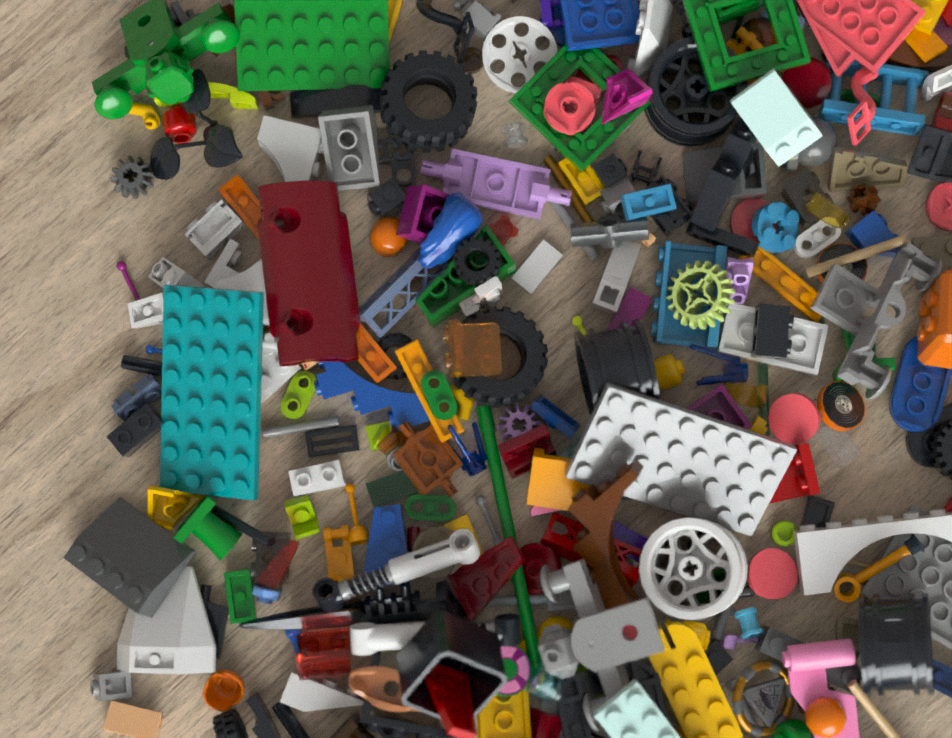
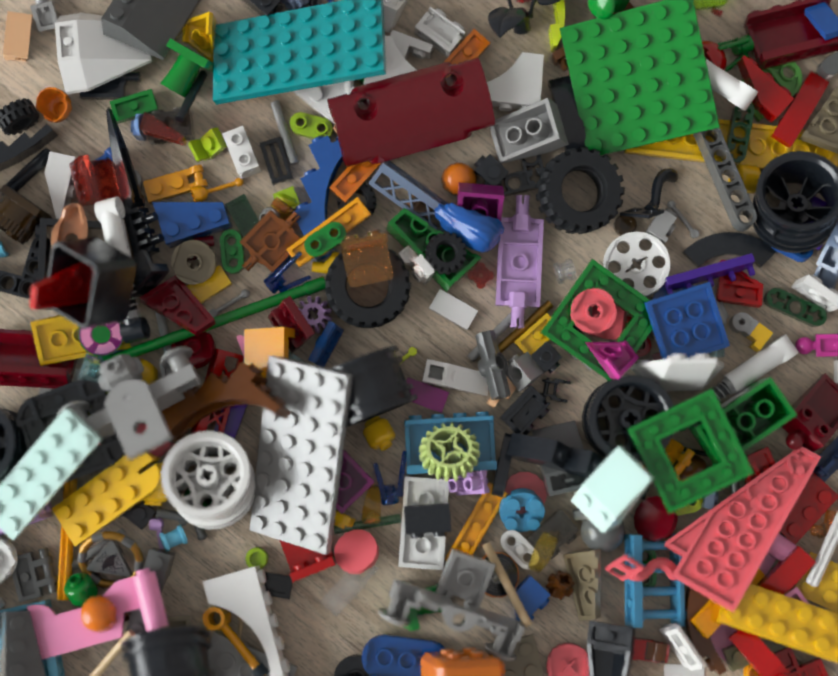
camera: 80 degrees right, 0 degrees up
(399, 570) = (171, 230): piece -> none
(648, 202) = (522, 393): dark azure plate -> none
(772, 574) = (219, 552): coral tile -> none
(841, 406) = (372, 591): black tile -> none

